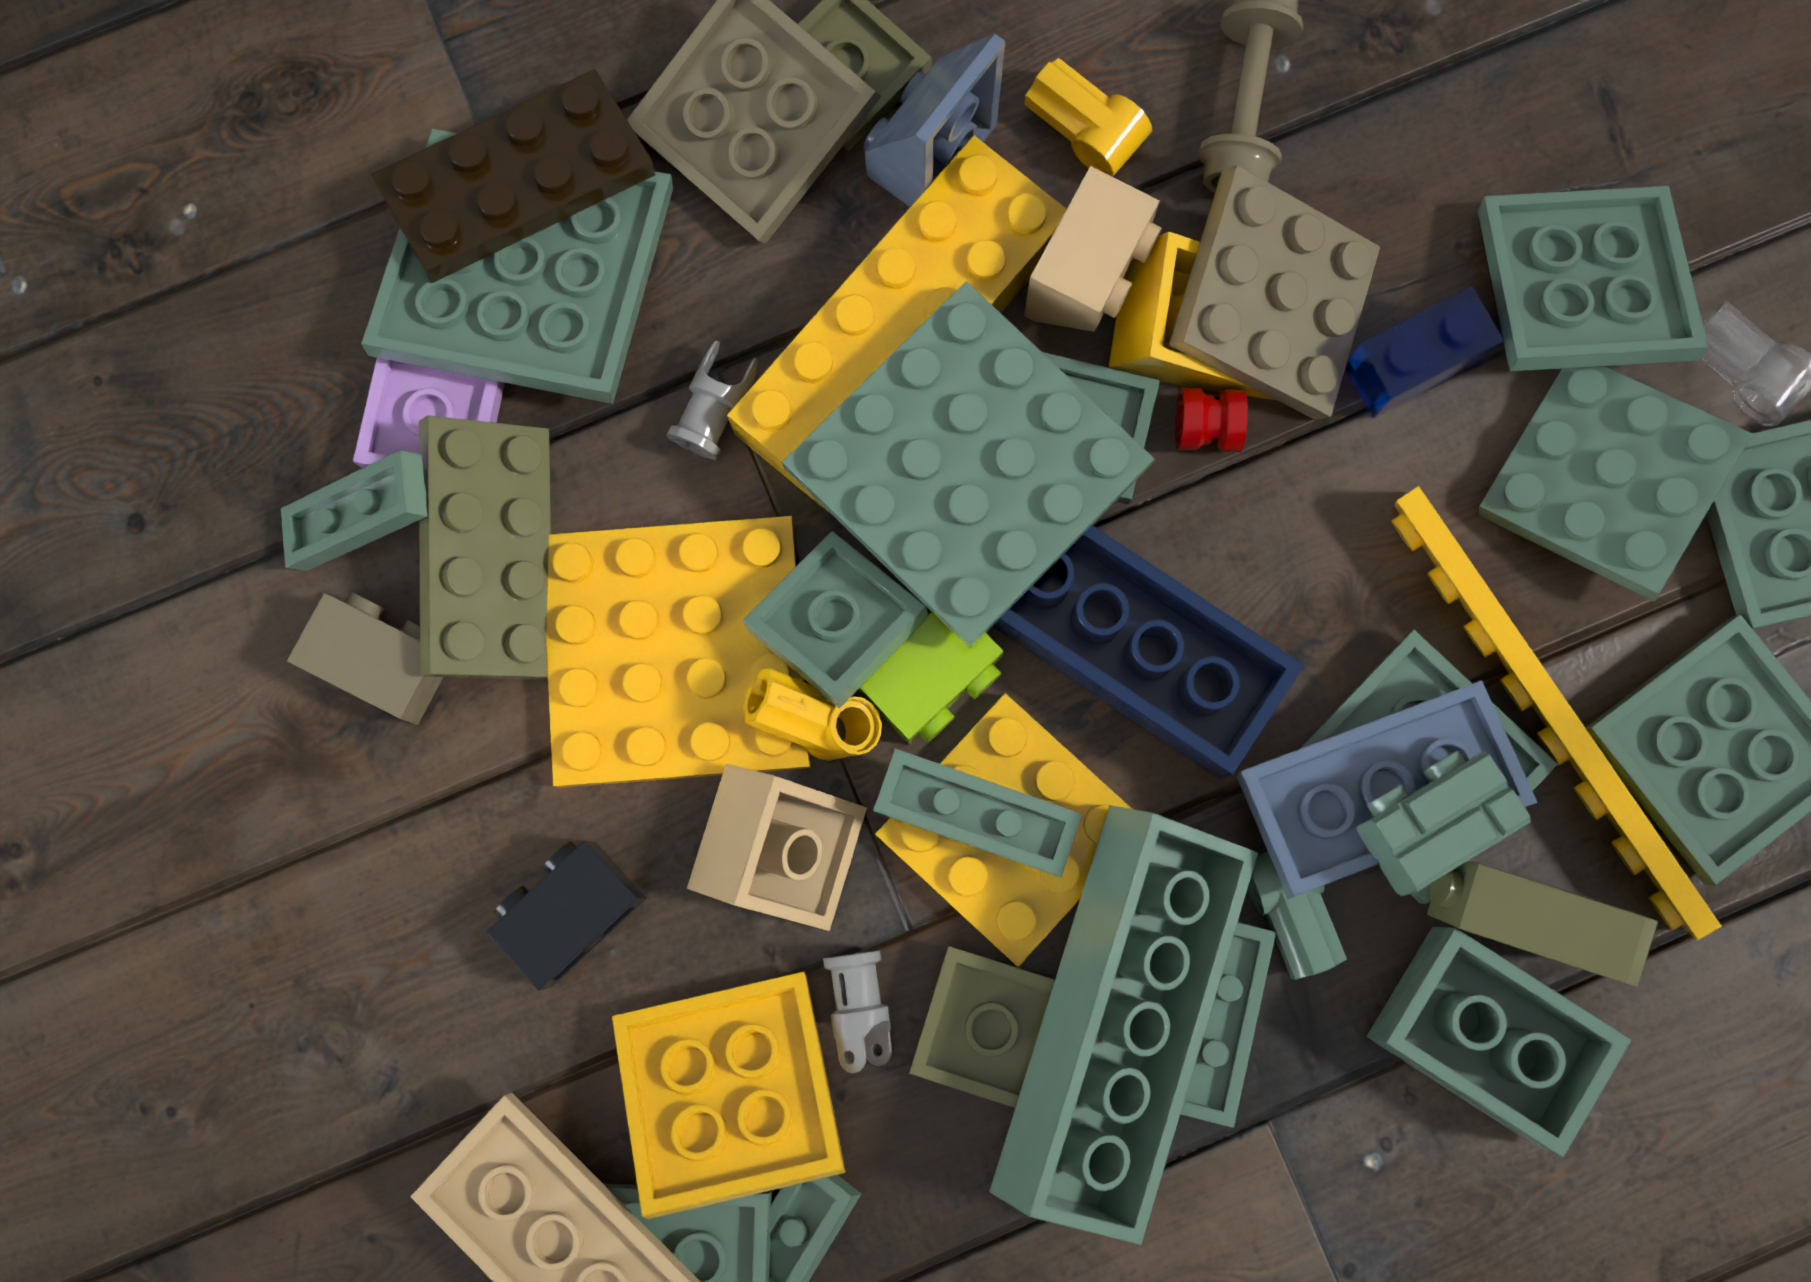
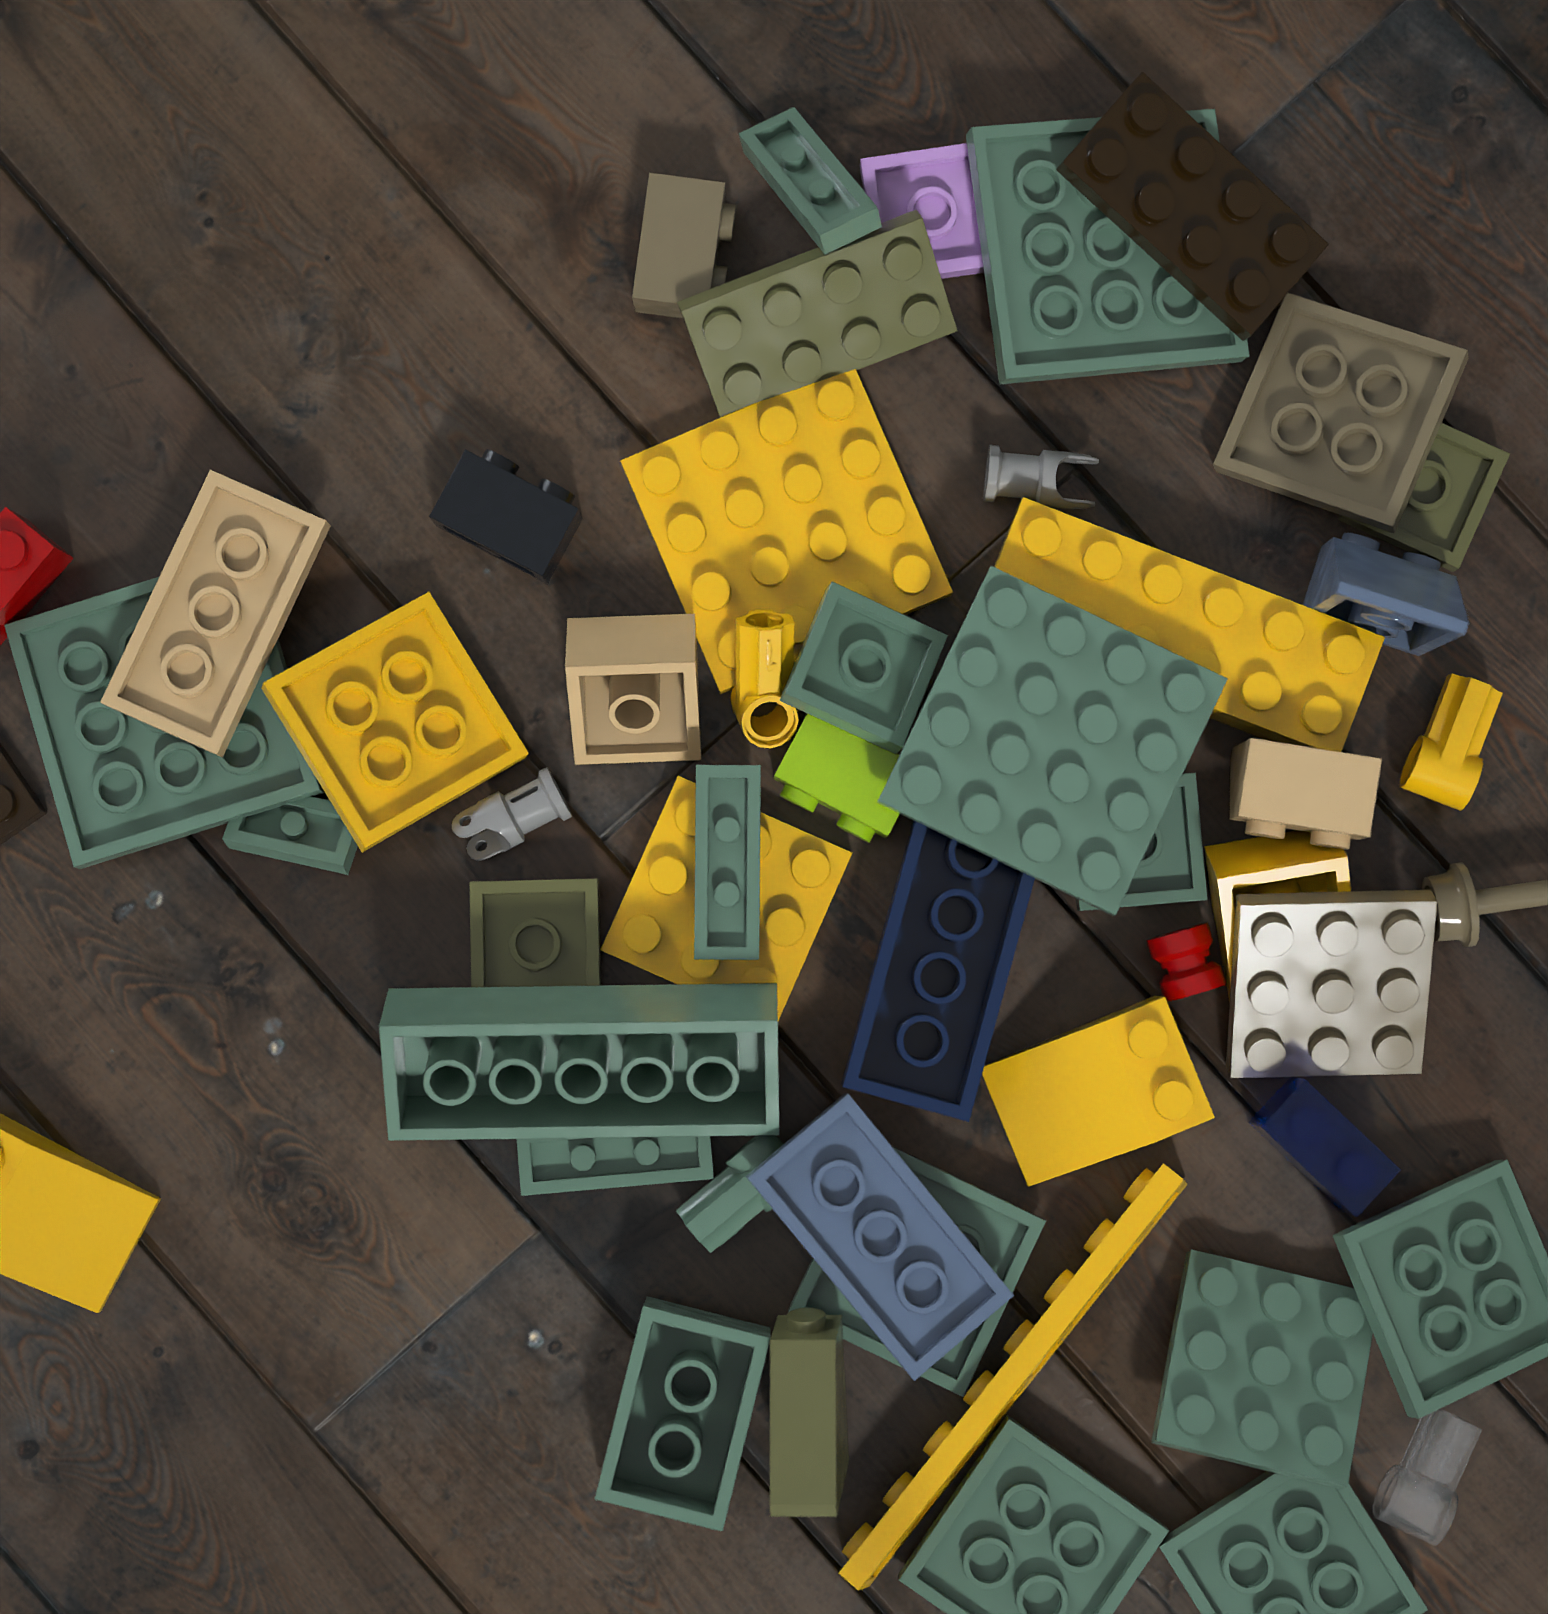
camera: 70 degrees right, 5 degrees up
(1306, 538) = (1097, 1091): none -> yellow slope
(1441, 823) = (861, 1291): sand green brick -> none

